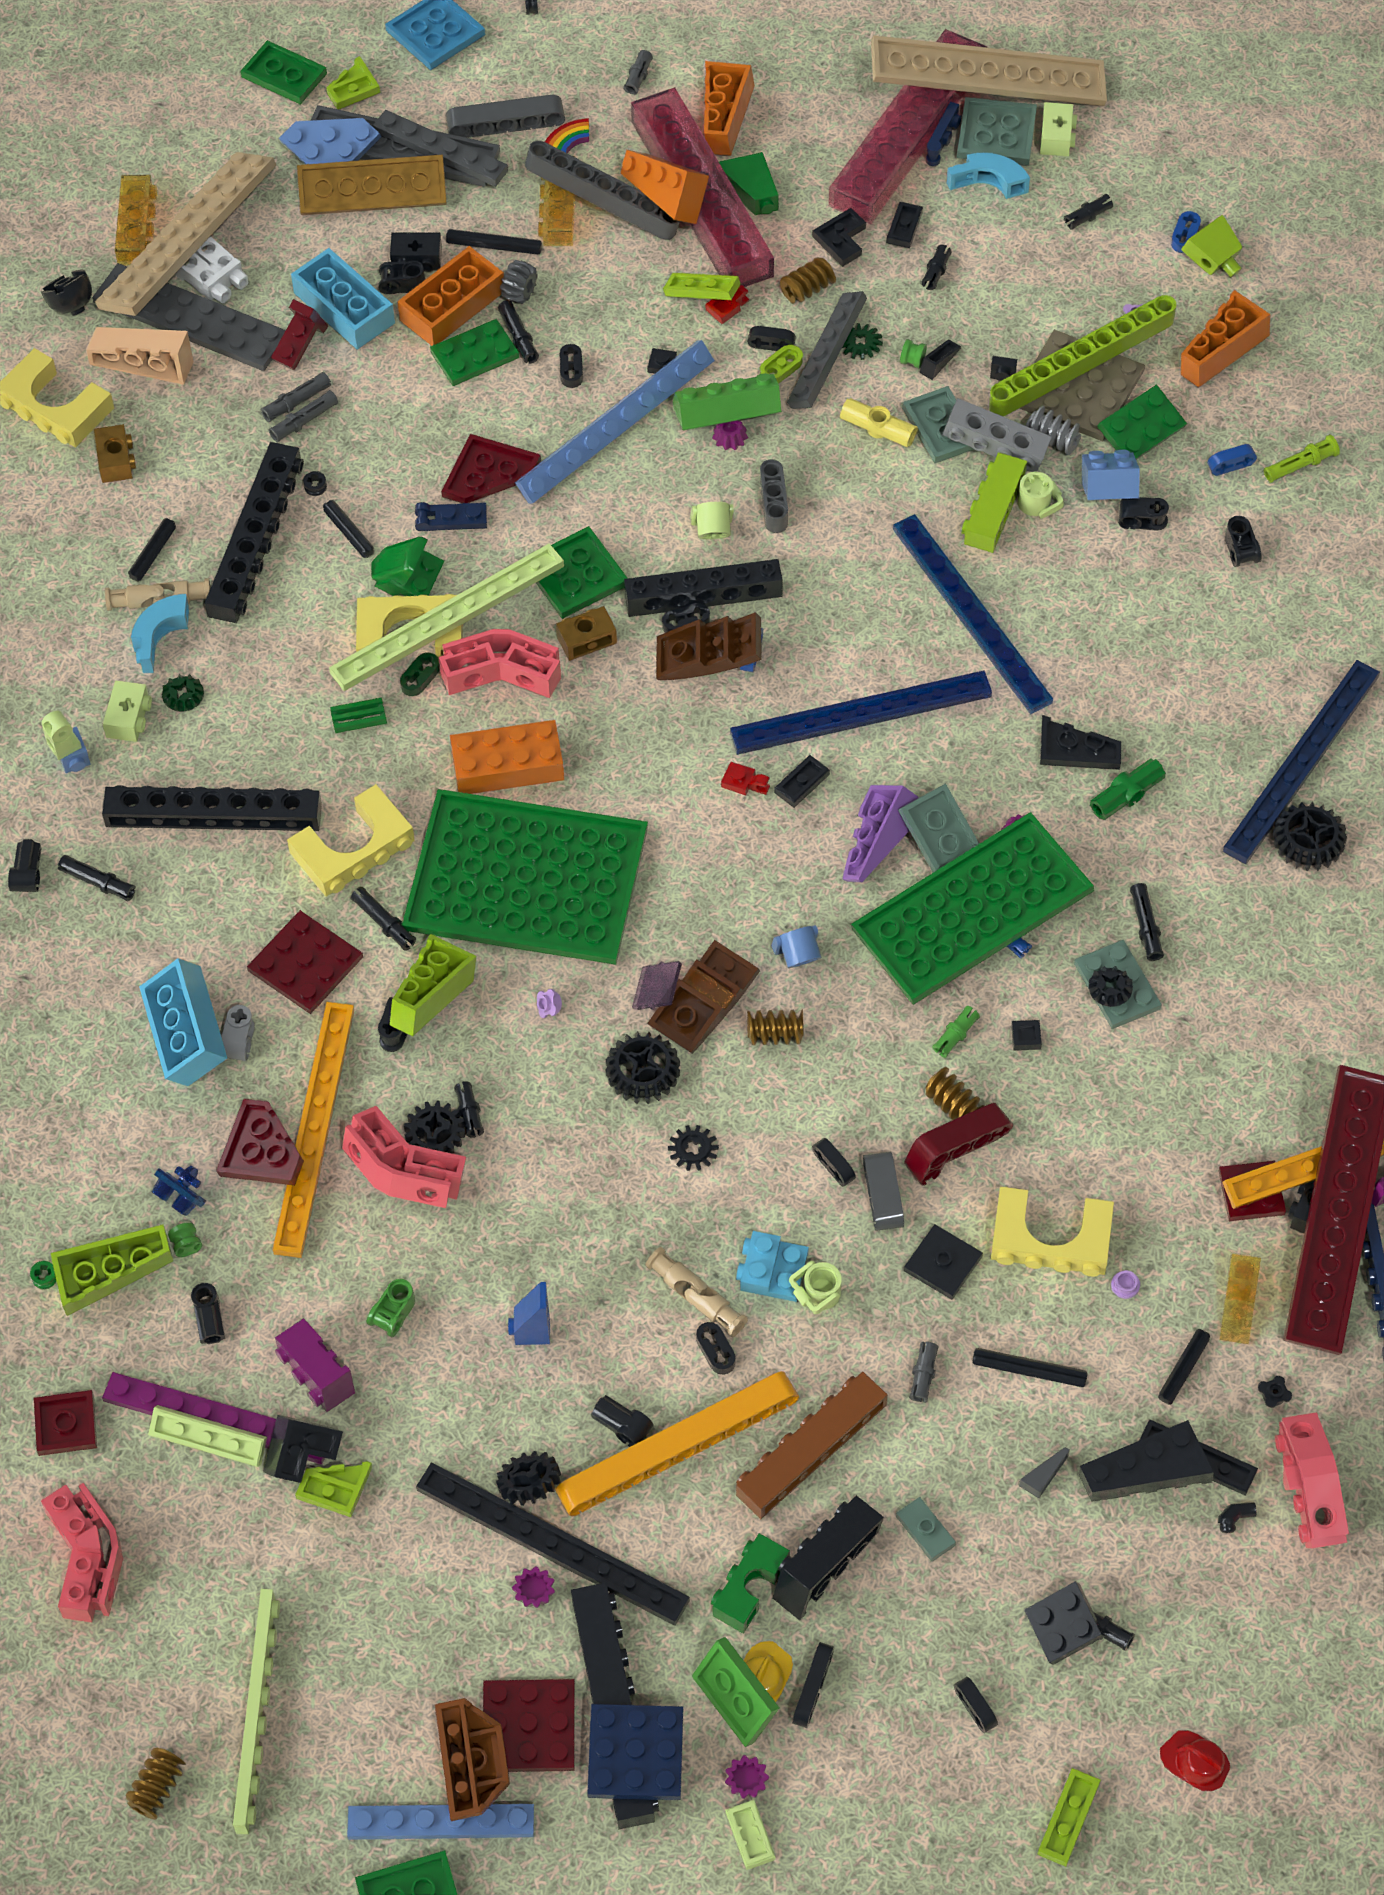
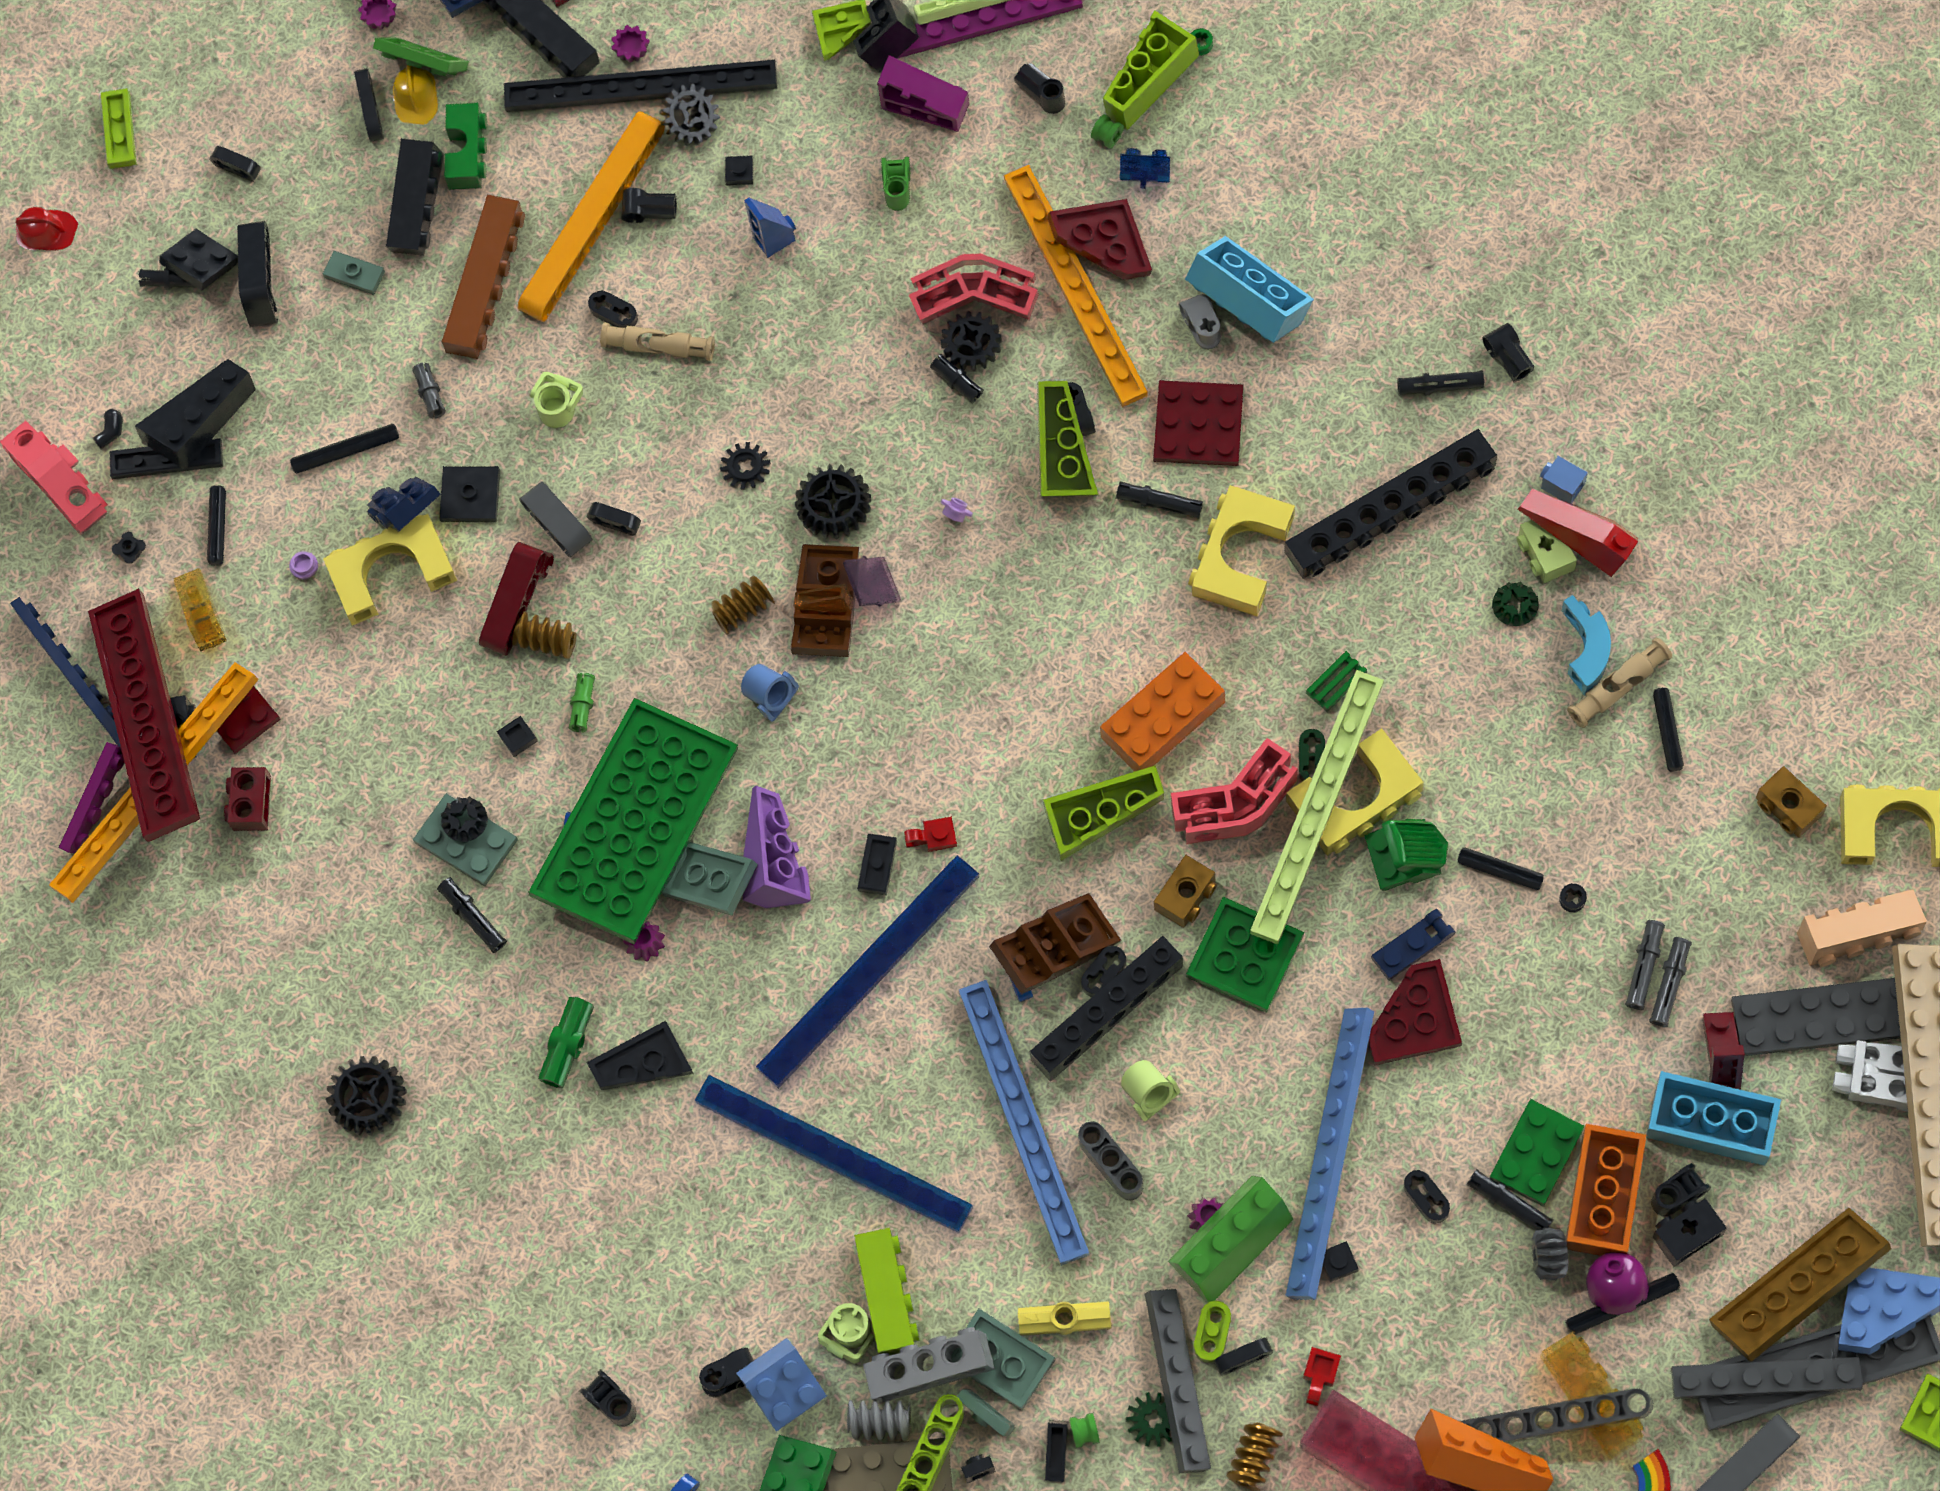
camera: 155 degrees right, 10 degrees up
(59, 735) = (1568, 461): yellowish green leg -> none
(88, 695) = (1587, 533): none -> red wedge
(254, 532) = (1554, 707): black brick -> none
(491, 242) = (1617, 1283): none -> magenta cylinder
(519, 1409) = (739, 170): none -> black plate
(526, 876) = (1063, 616): green plate -> none
(604, 717) = (1097, 809): none -> lime wedge
(701, 286) = (1358, 1370): lime plate -> none
(770, 1266) = (610, 402): medium azure plate -> none
(817, 557) = (1024, 1123): none -> medium blue plate
(972, 390) = (985, 1413): none -> sand green plate
(1008, 1271) = (399, 508): none -> dark blue plate
(1015, 1577) = (255, 274): none -> black beam
(1041, 1476) = (283, 365): dark grey piece -> none
(1279, 1109) = (255, 798): none -> dark red brick
(1301, 762) = (416, 1180): dark blue plate -> none

